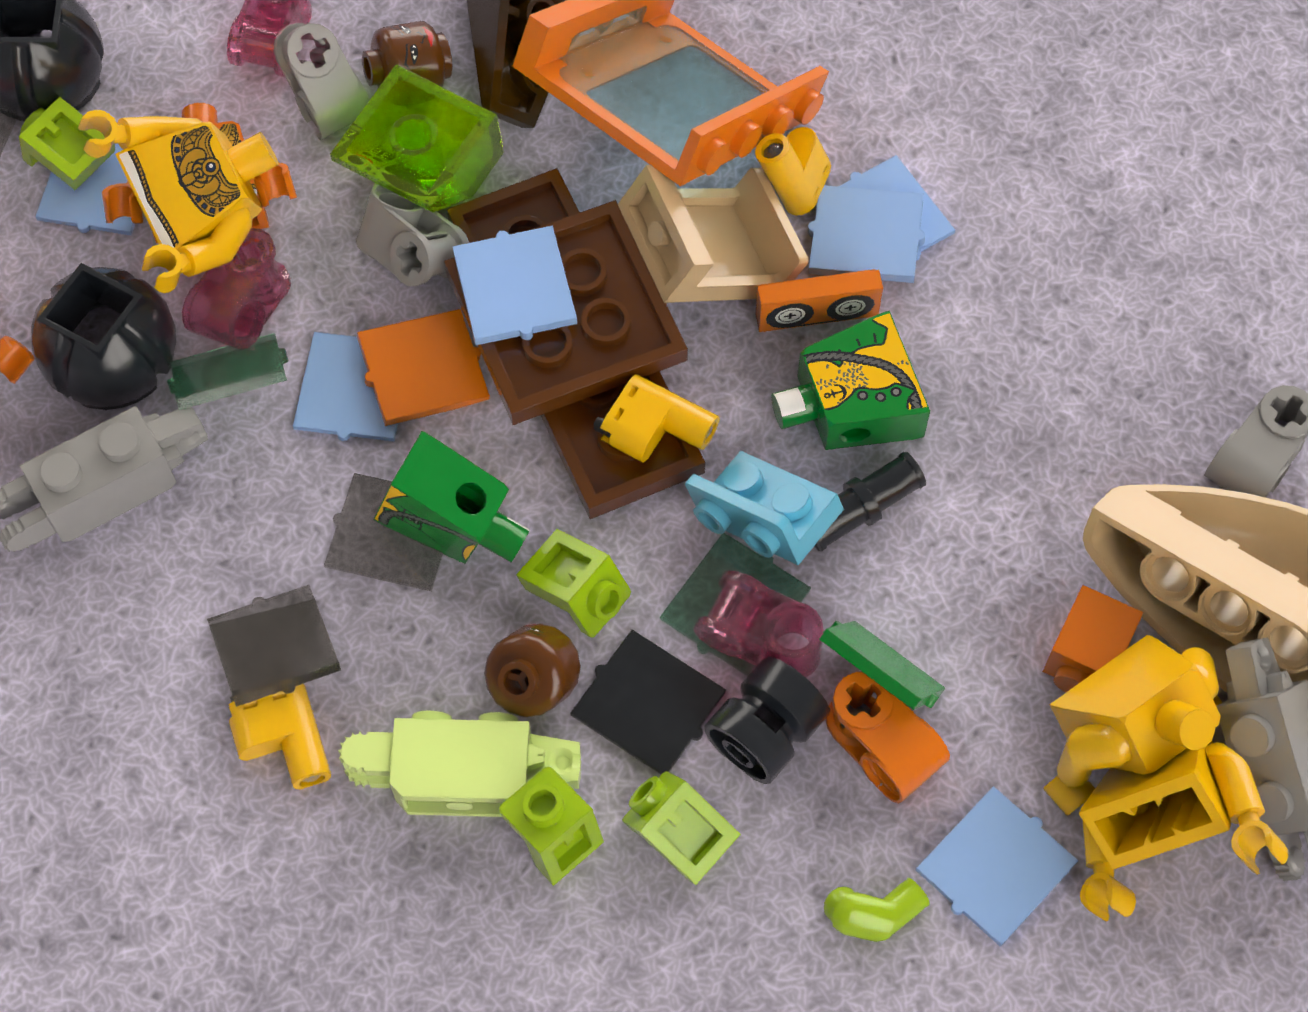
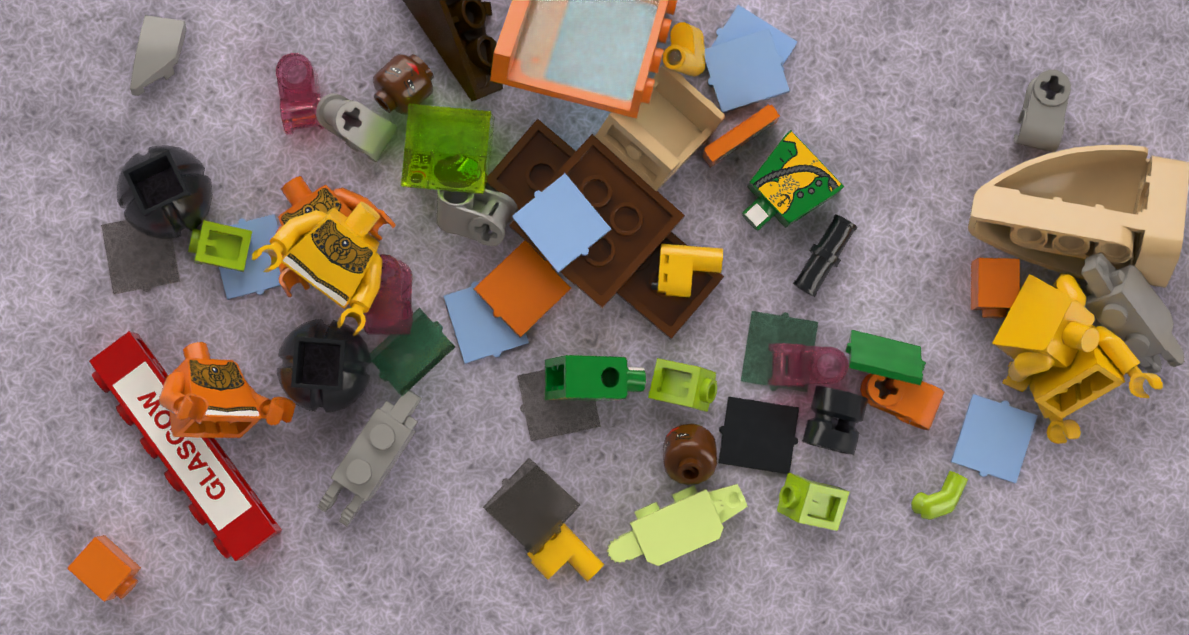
camera: 25 degrees left, 20 degrees up
(553, 823) = (744, 538): lime bracket -> none
(765, 507) = (773, 287): medium azure bracket -> none

